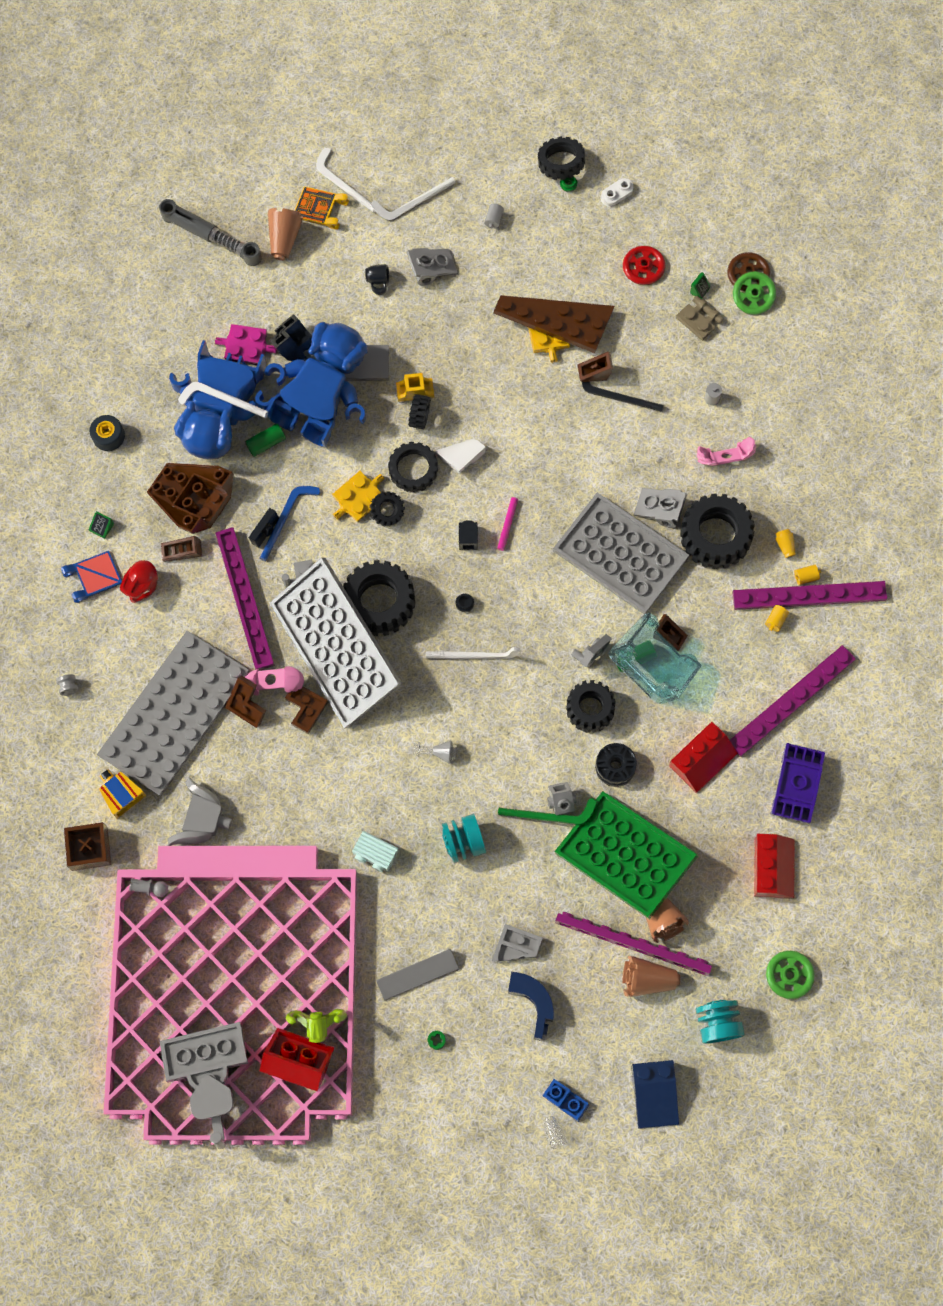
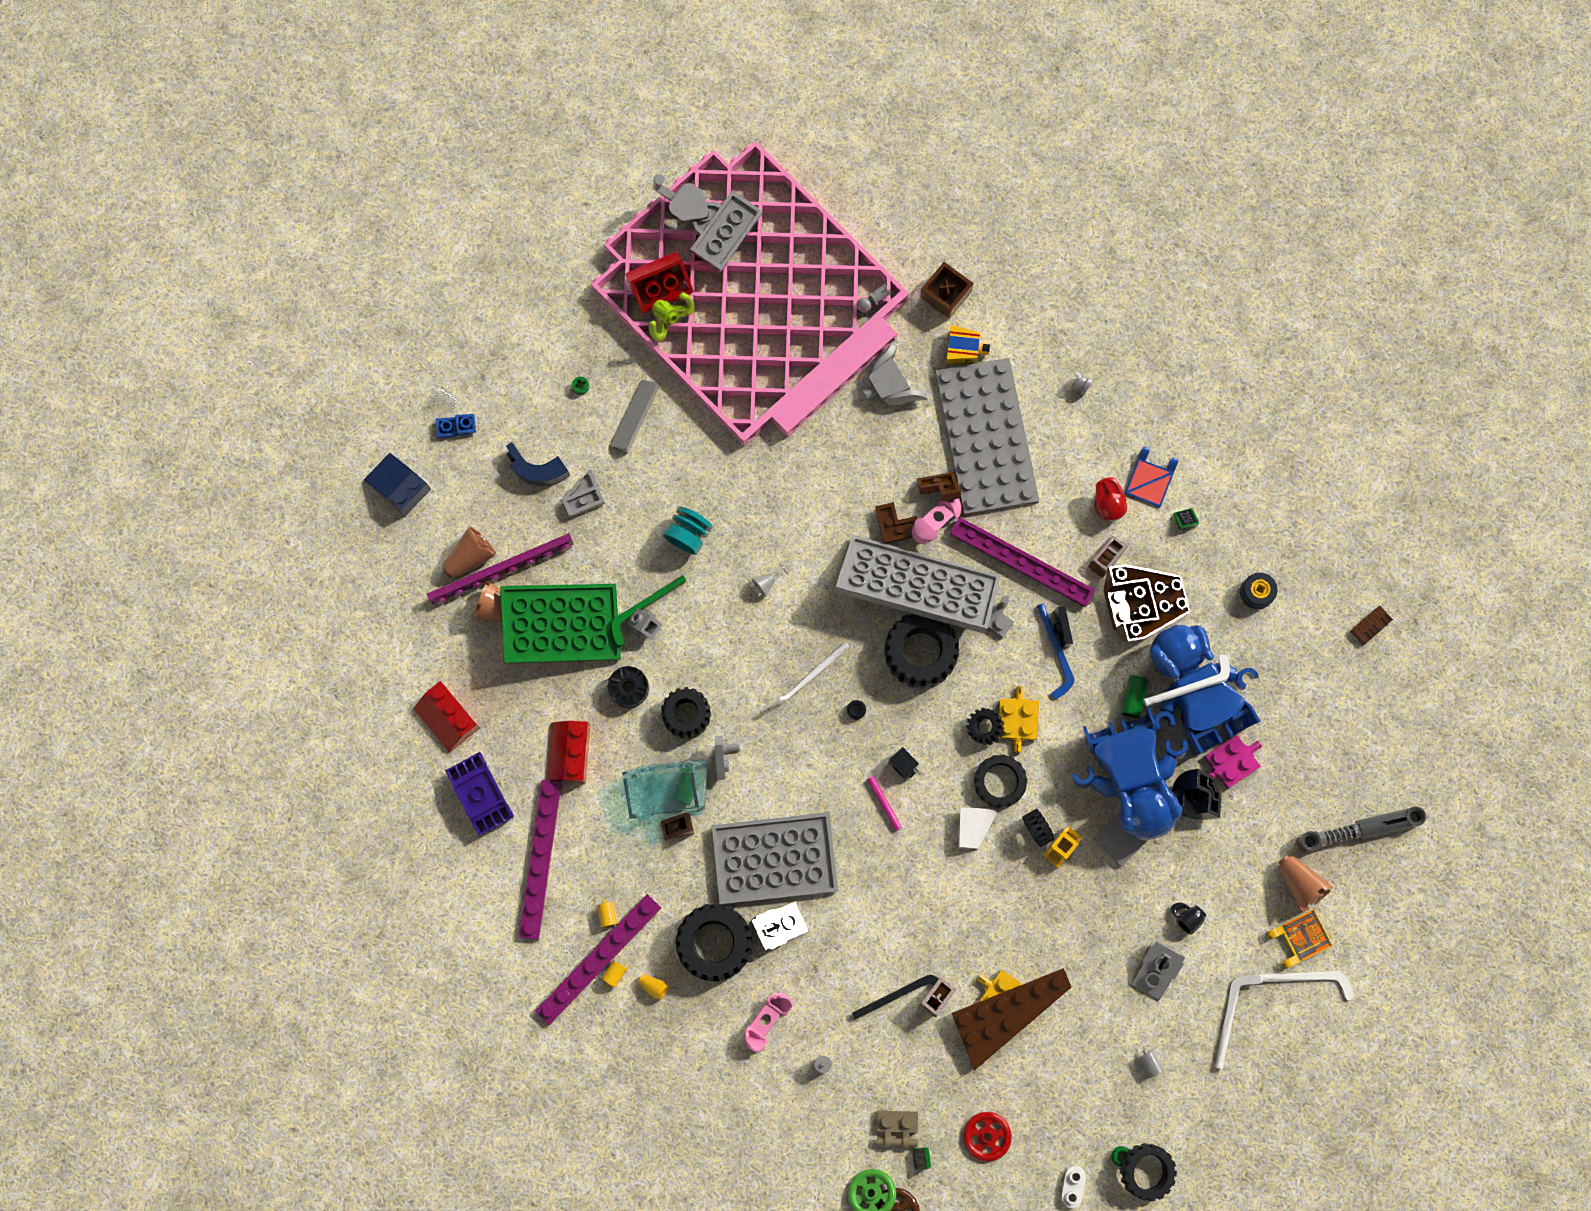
camera: 135 degrees right, 5 degrees up
(59, 347) = (1371, 625): none -> reddish brown tile
(375, 851) = (743, 468): light aqua brick -> none
(720, 1021) = (390, 566): teal wheel -> none
(779, 987) = (371, 633): bright green plate -> none

